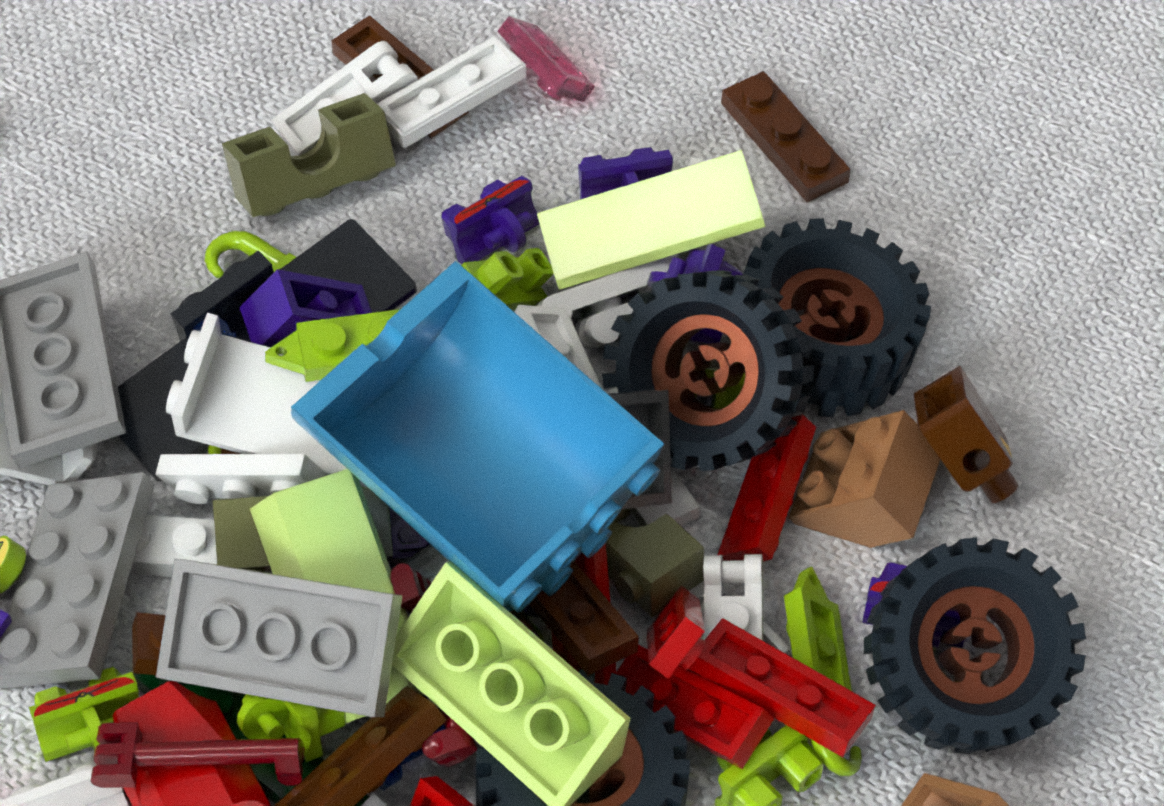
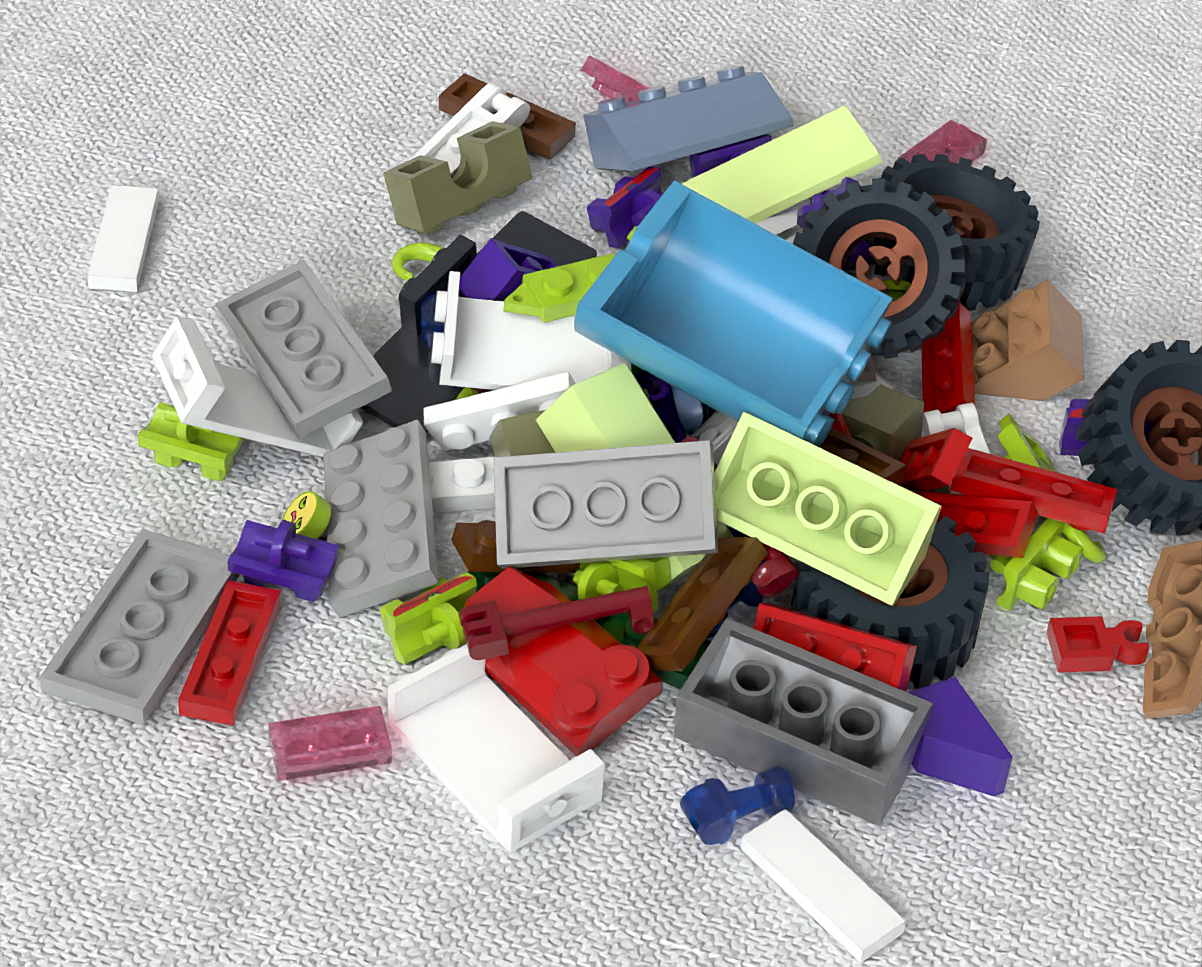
camera: 15 degrees left, 10 degrees down
(451, 90) = (562, 113): white tile -> none
(584, 120) = (684, 120): none -> sand blue slope
(785, 136) = (816, 98): reddish brown plate -> none
(876, 198) = (951, 140): none -> clear pink plate
(965, 435) = (1101, 296): reddish brown torso -> none

